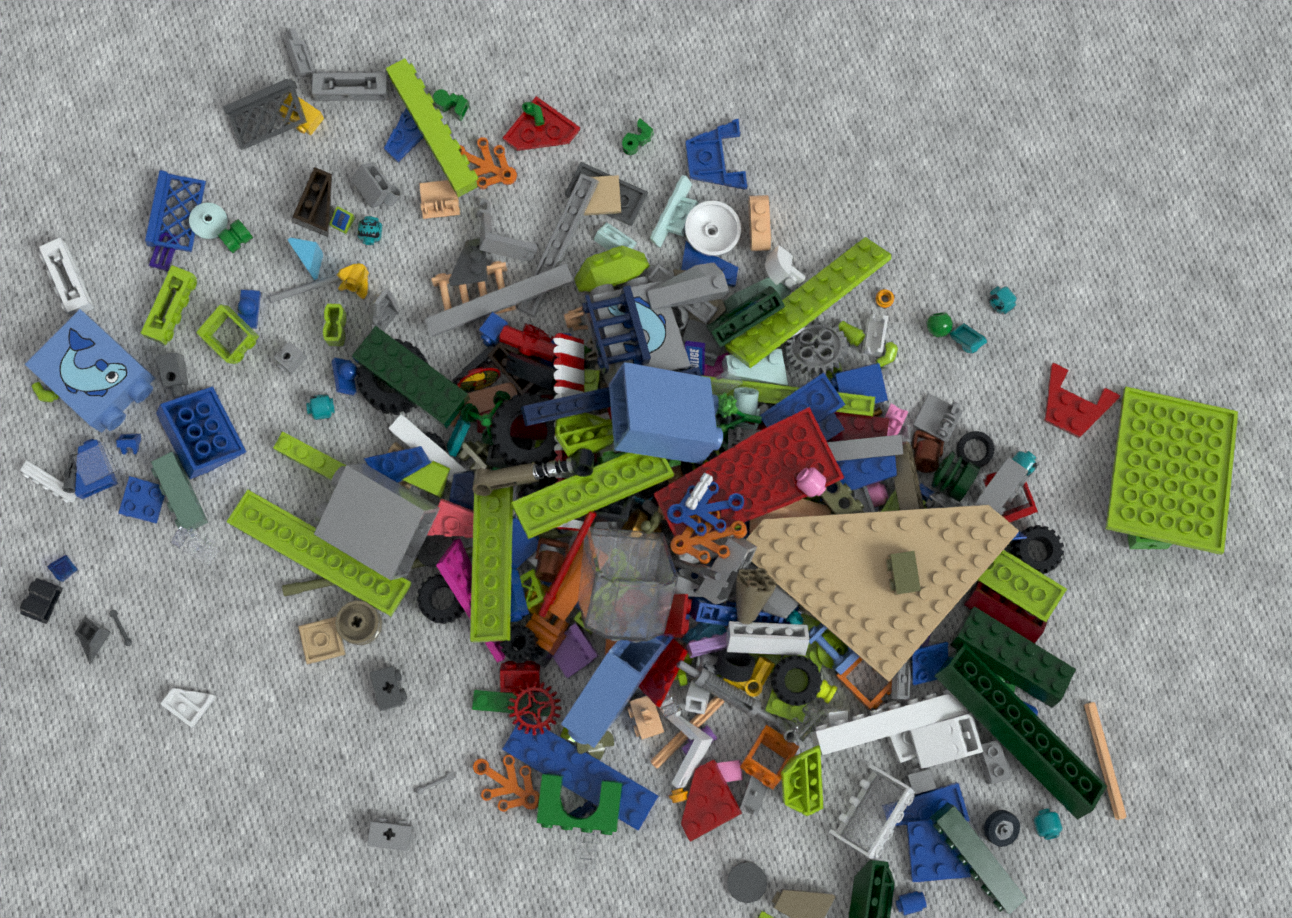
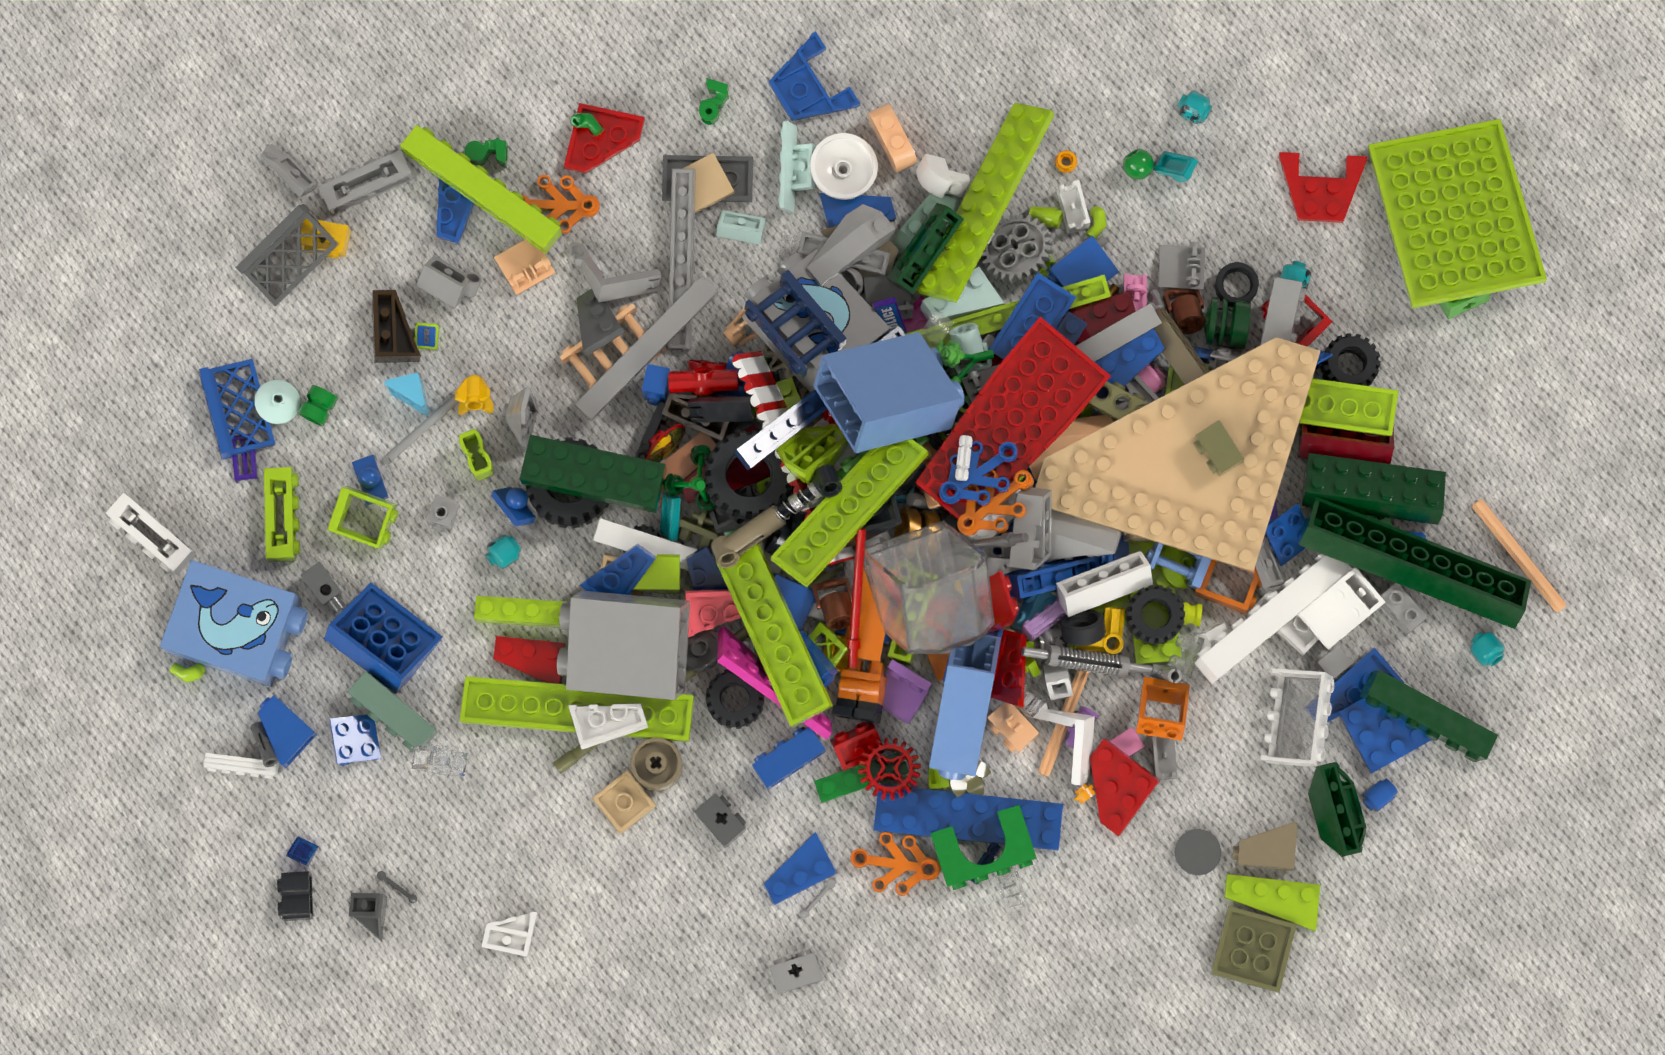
camera: 20 degrees left, 0 degrees up
(94, 464) = (286, 722): clear piece -> none
(129, 440) = (309, 681): blue tile -> none
(302, 495) = (530, 657): none -> red wing
(331, 573) = (603, 723): none -> white wing
(369, 230) = (464, 334): teal head -> none
(434, 755) = (802, 870): none -> blue wing
(462, 662) = (788, 757): none -> blue brick
(523, 654) = (854, 710): black tyre -> none
(610, 267) = (751, 260): lime wedge -> none
(652, 524) = (927, 518): olive arm -> none
(752, 593) = (1068, 541): dark tan cone -> none
(795, 618) = (1124, 549): teal hinge -> none
(803, 782) = (1210, 717): lime wedge -> none
(811, 482) = (1078, 395): bright pink head -> none
(1002, 828) = (1440, 674): black wheel -> none

